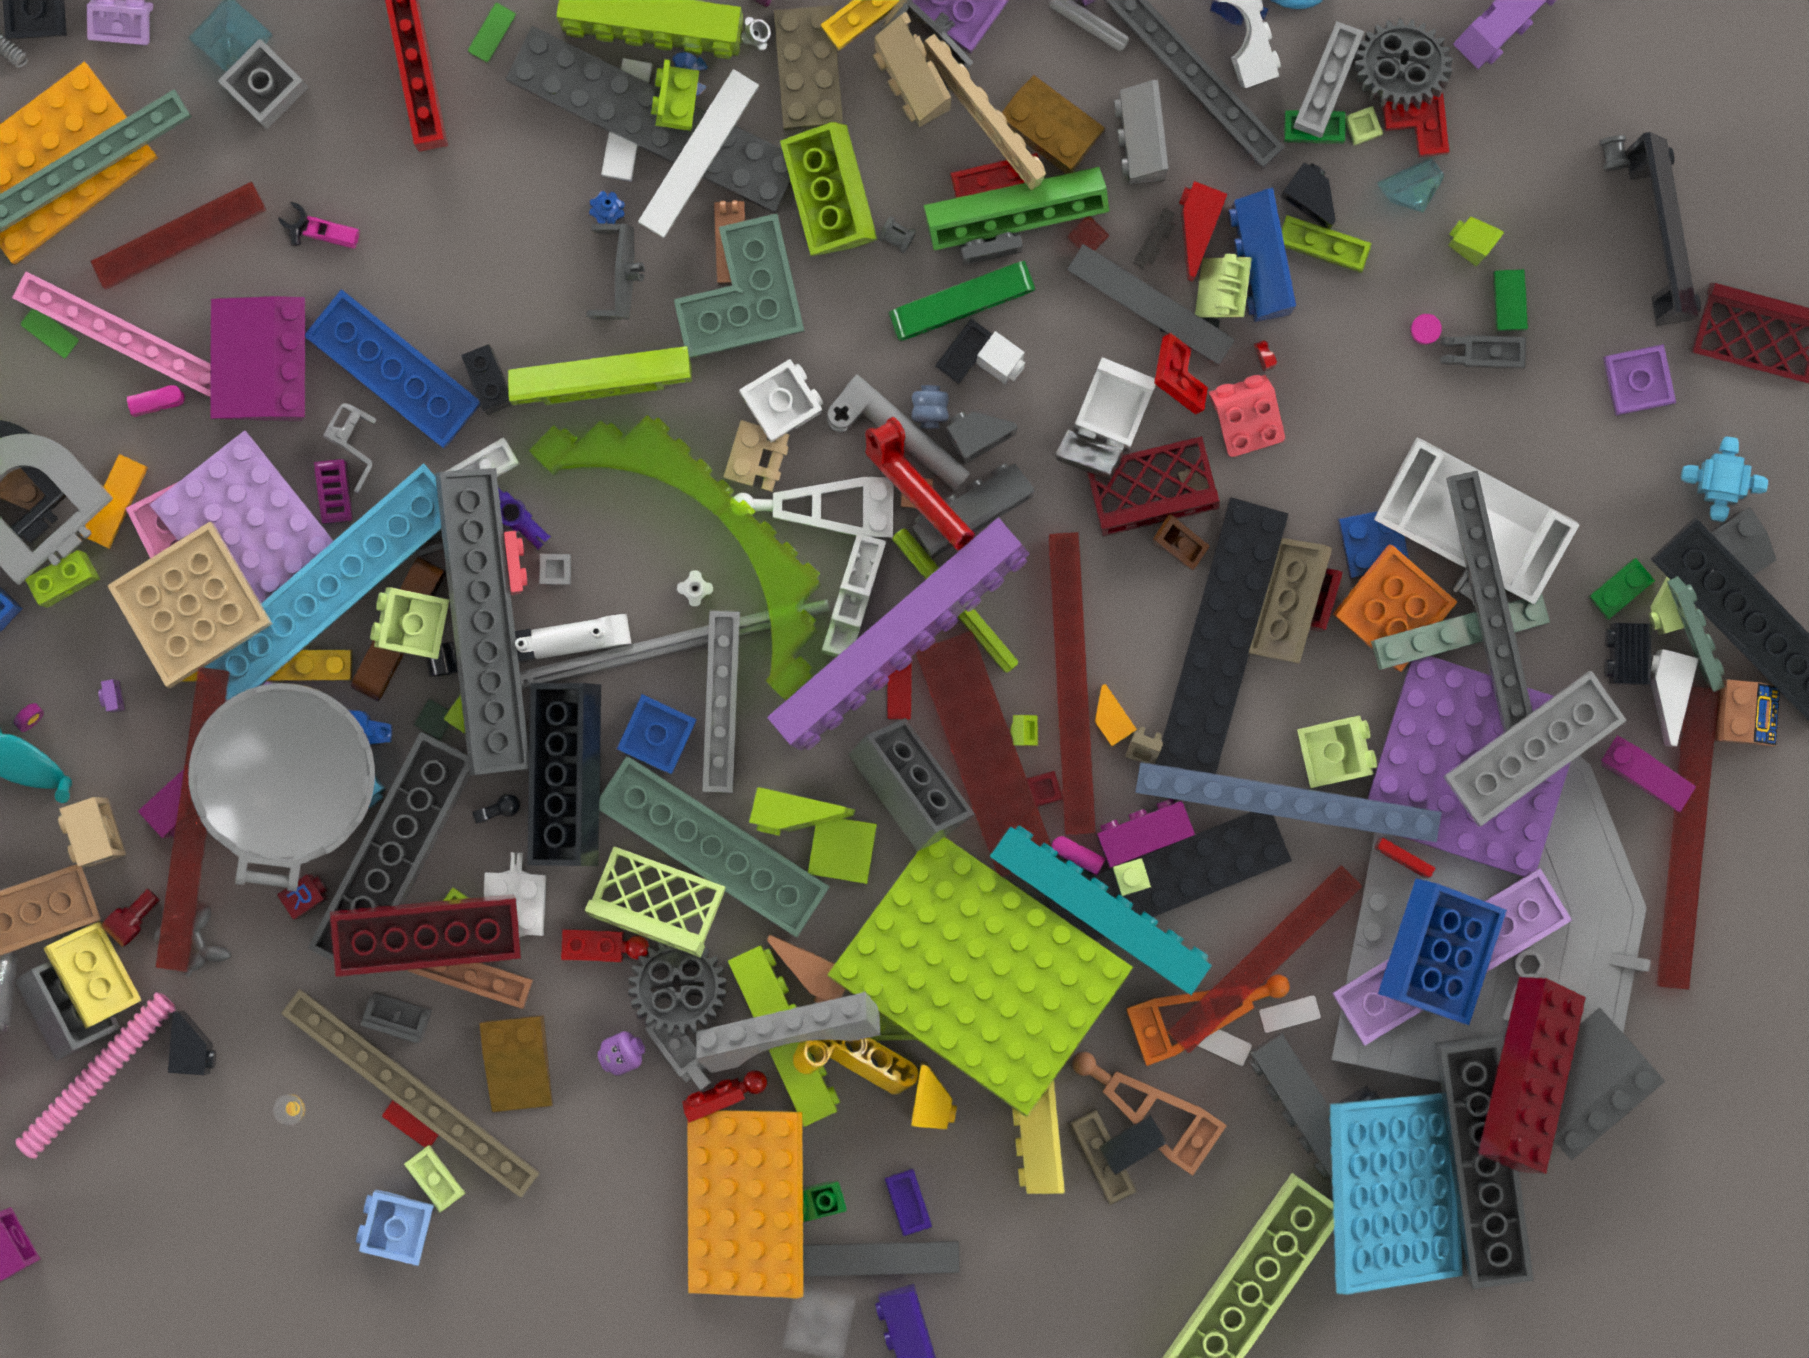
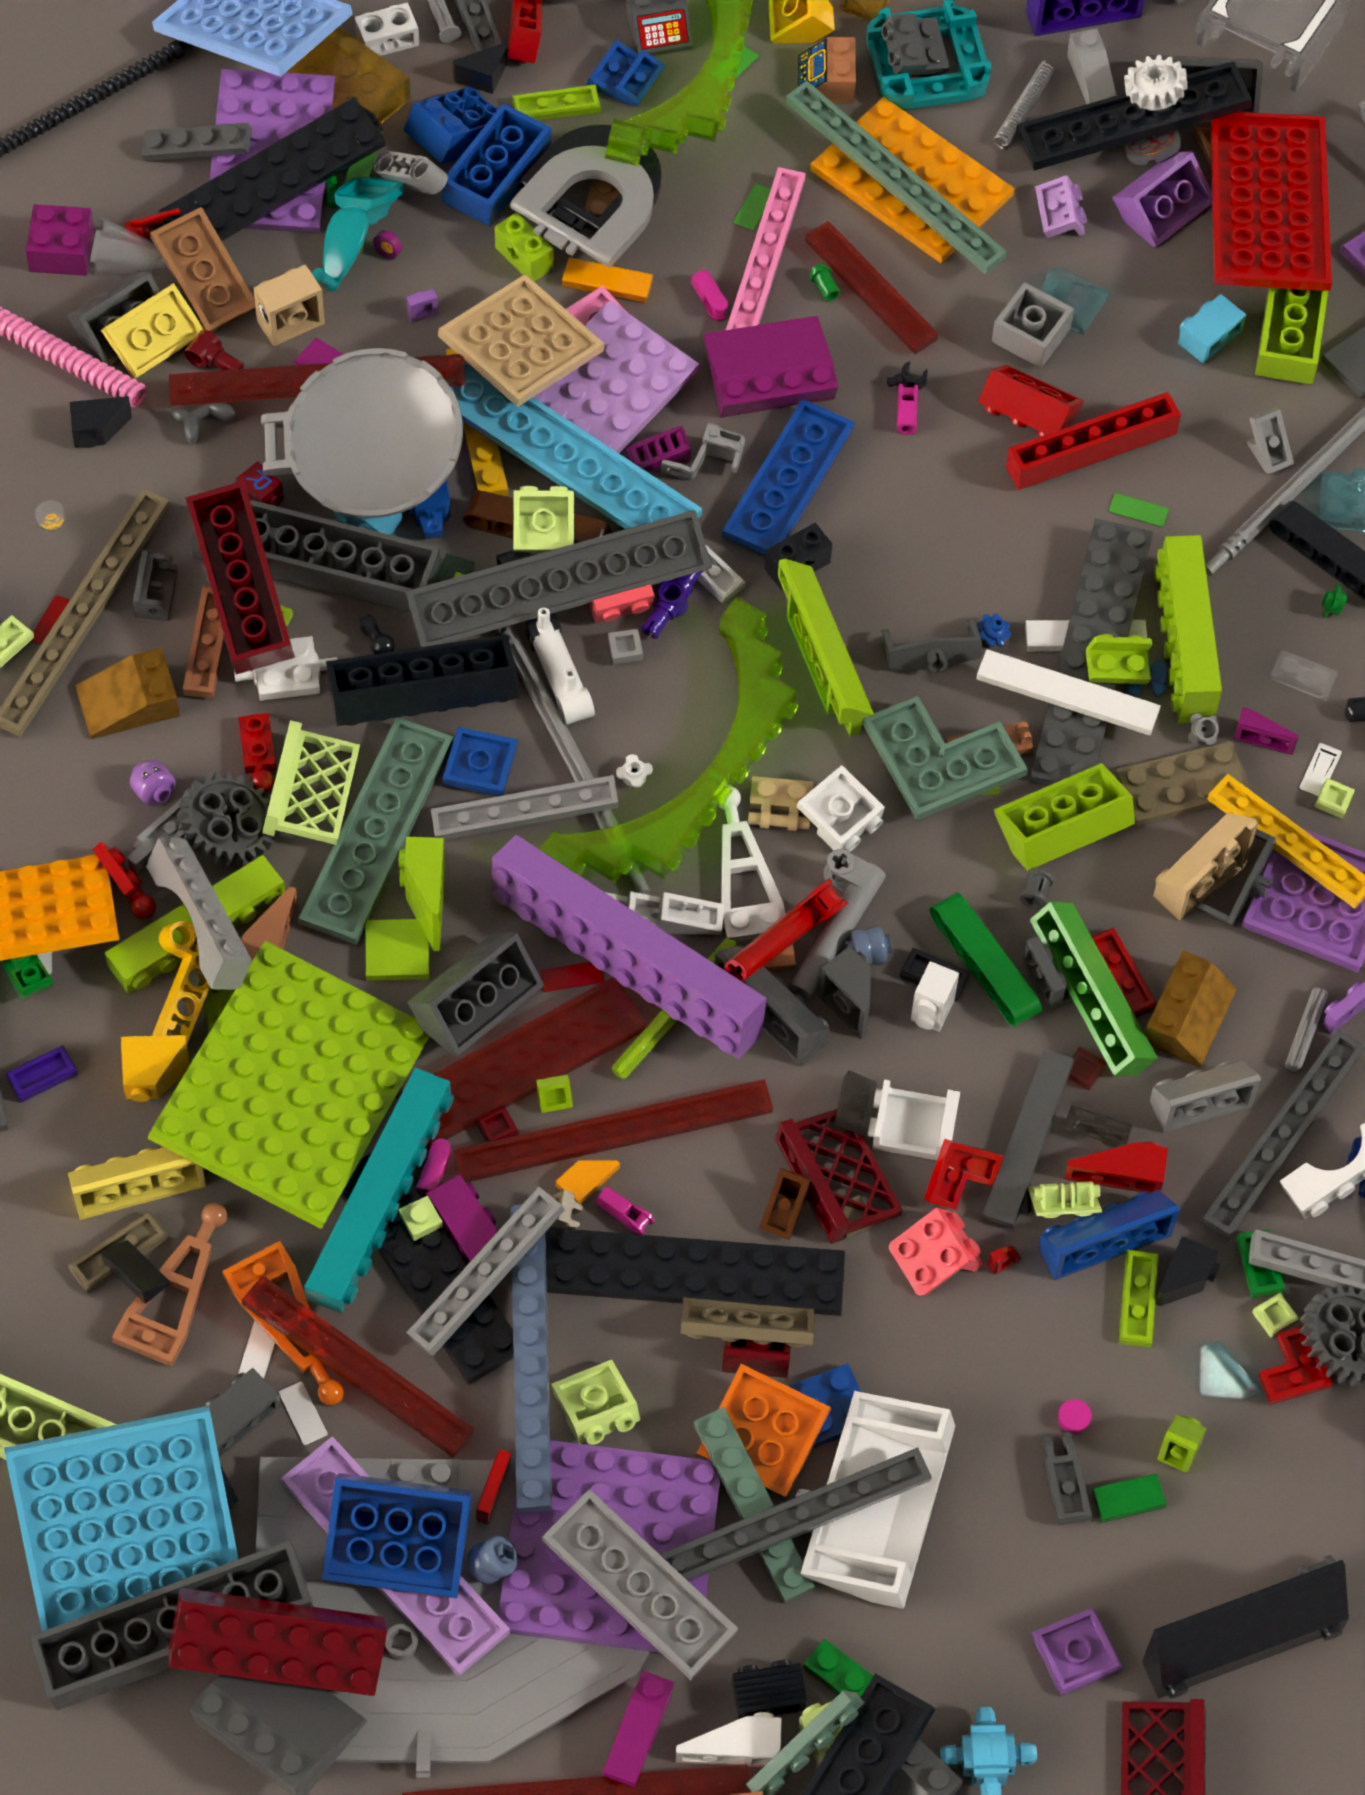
camera: 75 degrees right, 25 degrees down
(162, 281) = (822, 277): none -> green pin
(349, 107) = (1028, 400): none -> red slope
(989, 119) = (1174, 943): tan plate -> none
(1149, 692) = (621, 1208): none -> dark pink bar
(1203, 827) = (485, 1271): none -> light grey plate
(1476, 872) = (492, 1559): none -> sand blue piece

